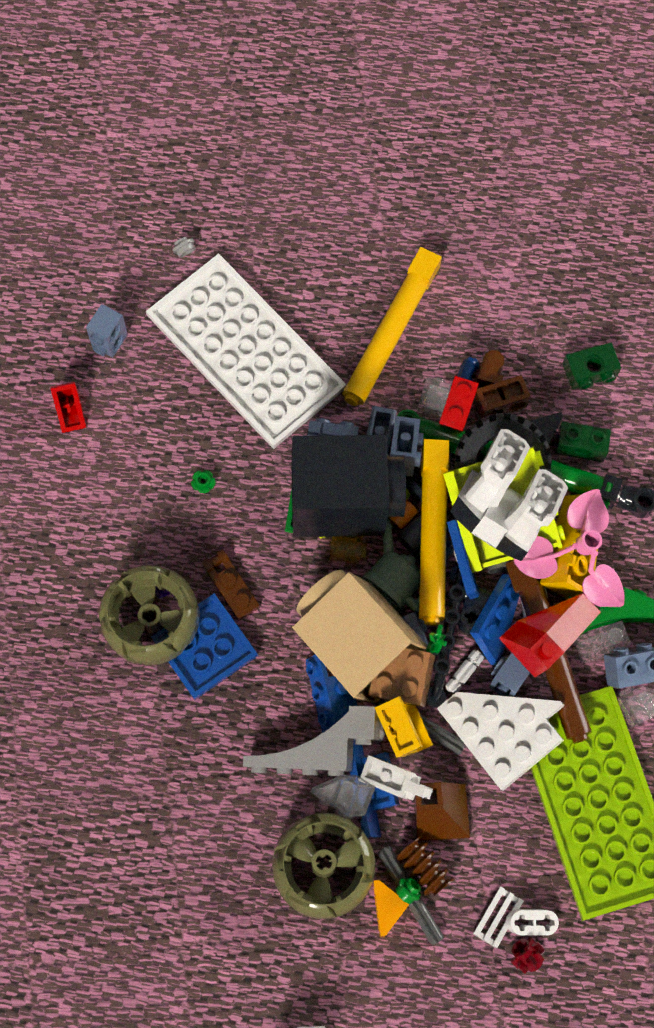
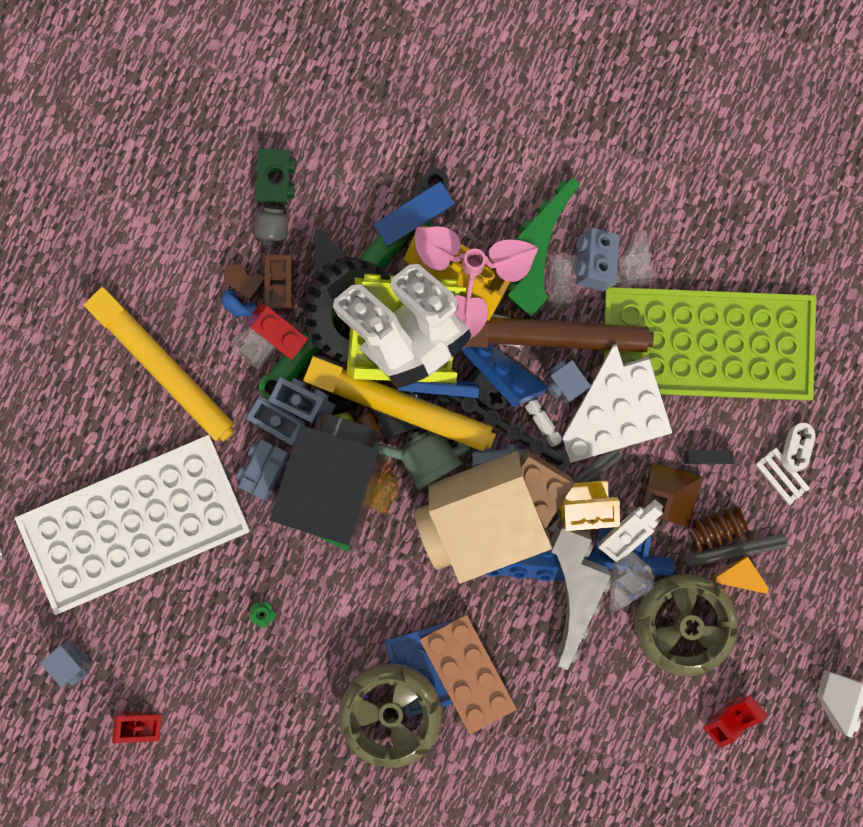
camera: 65 degrees left, 15 degrees up
(208, 676) = (468, 674): none -> nougat plate
(231, 585) = (379, 621): reddish brown plate -> none
(246, 946) = (734, 719): none -> red brick
(408, 890) = (735, 553): green plate -> none
(436, 641) = (514, 444): green plant -> none
(490, 837) = (708, 457): none -> black beam
(527, 955) = (826, 463): dark red gear -> none
(548, 377) = (271, 225): none -> dark grey head
(548, 633) = (546, 334): red wedge -> none
(583, 441) = (352, 218): dark green brick -> none
(612, 490) = (414, 214): none -> blue tile

